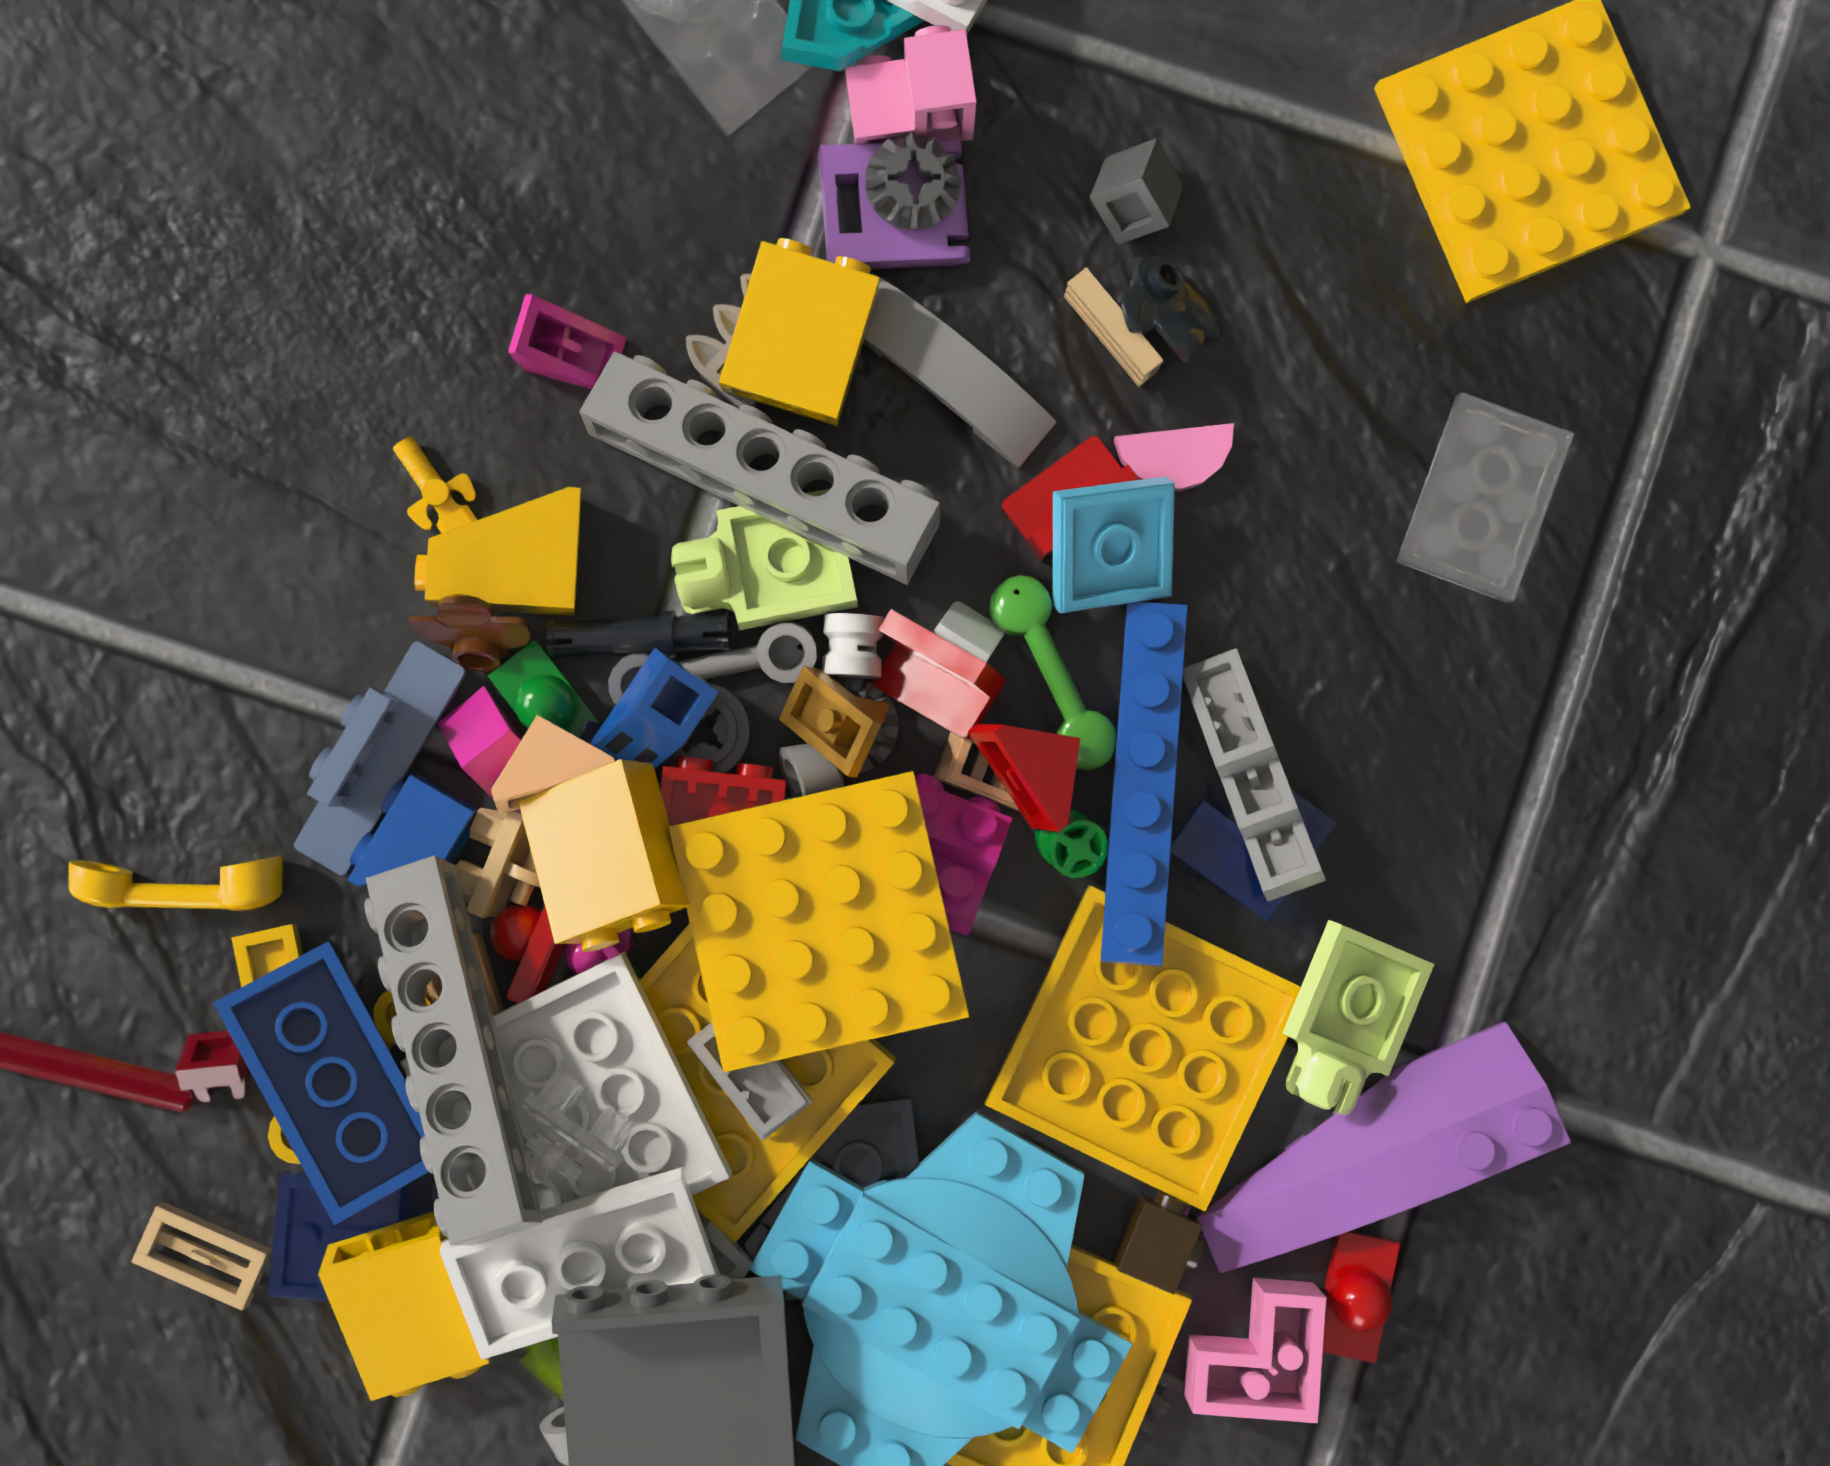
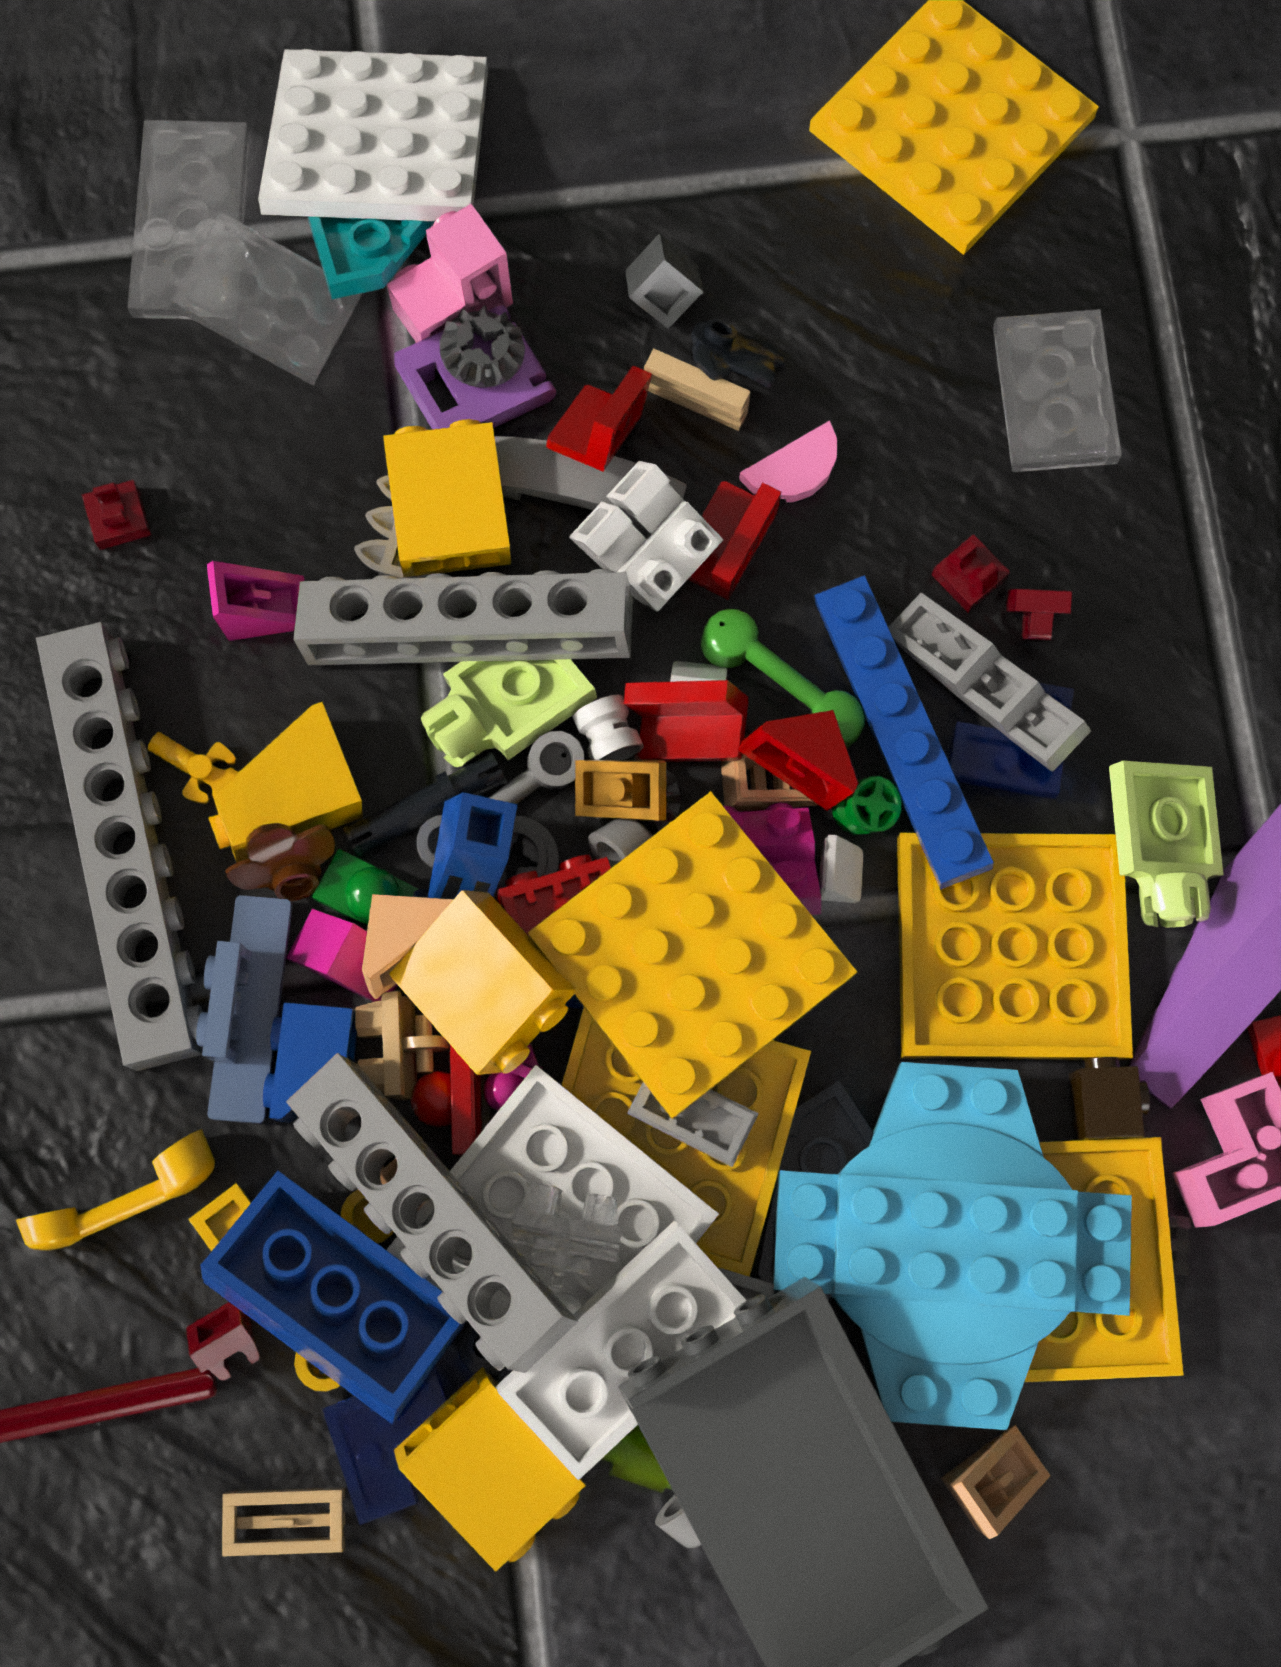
camera: 25 degrees left, 10 degrees down
(345, 327) = (67, 664): none -> light grey brick
(467, 184) = (116, 514): none -> dark red tile
(990, 494) = (674, 534): none -> white hips
(995, 317) = (600, 421): none -> red panel
(1016, 893) = (840, 870): none -> white slope
(1112, 544) = (781, 551): medium azure tile -> none
(1297, 650) = (970, 573): none -> dark red tile
(1345, 721) = (1038, 610): none -> dark red tile

